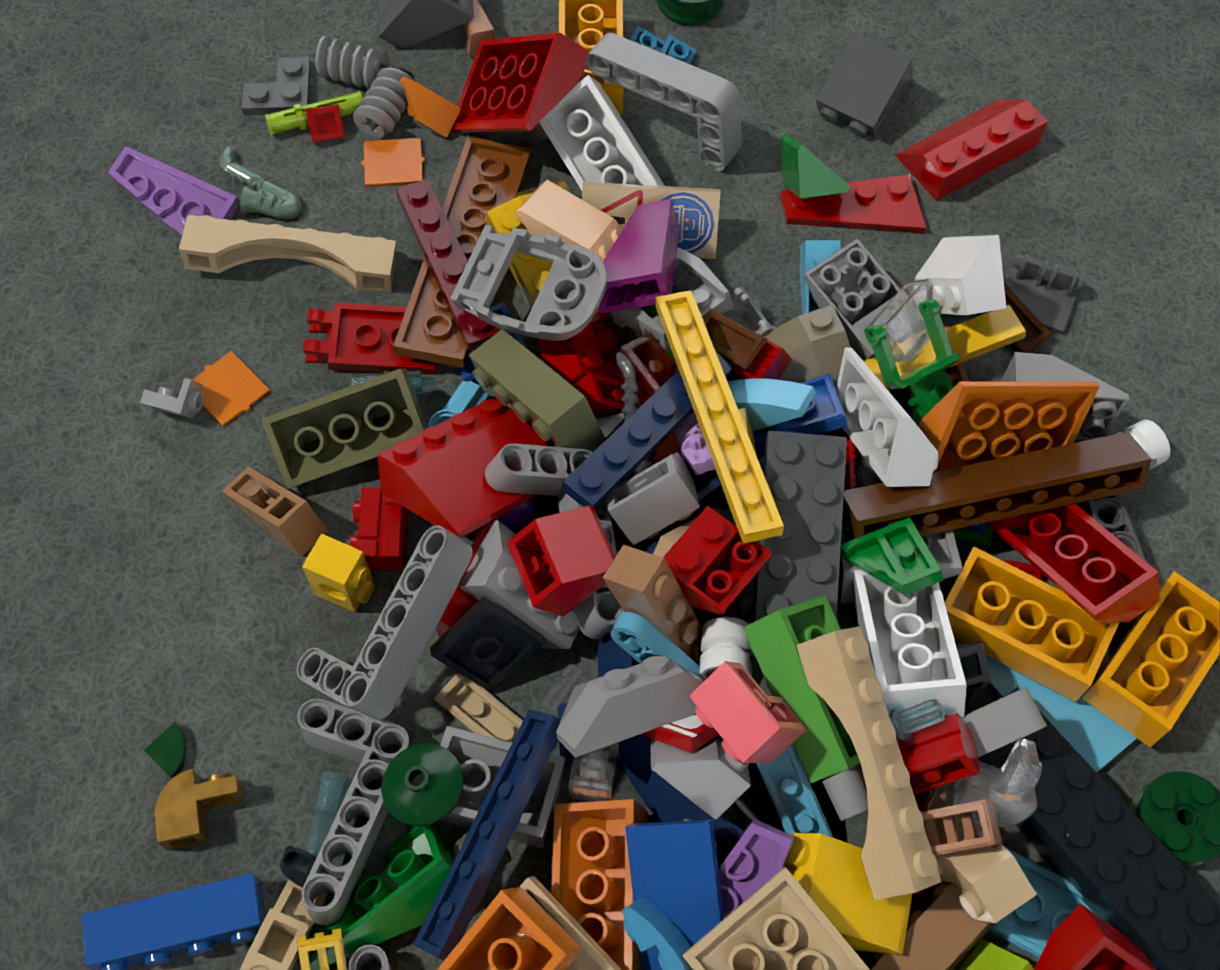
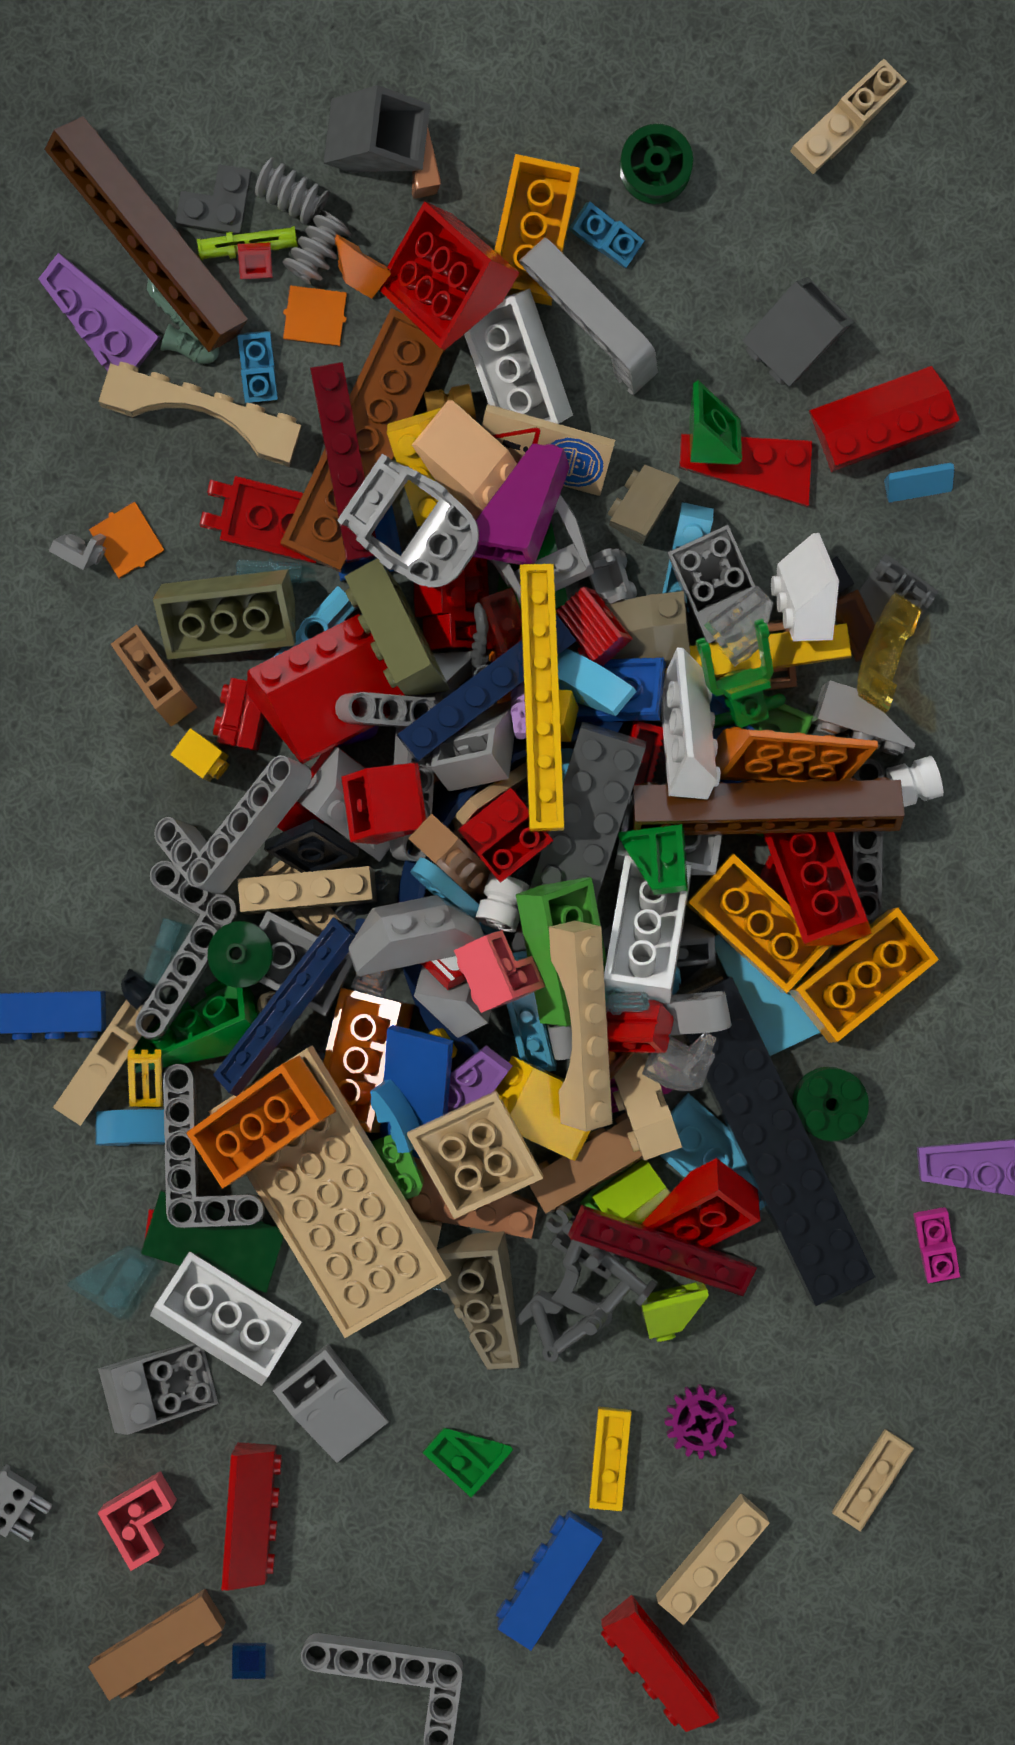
camera: 15 degrees right, 25 degrees up
(169, 750) = (44, 872): dark green tile -> none
(183, 802) = (51, 924): pearl gold brick -> none
(215, 118) = (145, 233): none -> reddish brown brick
(342, 207) = (257, 366): none -> dark azure slope
(491, 696) = (307, 890): none -> tan brick
(733, 340) = (578, 614): reddish brown tile -> none
(763, 248) = (644, 502): none -> dark tan slope
(988, 822) = (654, 1087): nougat slope -> none
(1025, 187) = (919, 482): none -> dark azure slope
(1052, 325) = (884, 652): none -> clear yellow slope

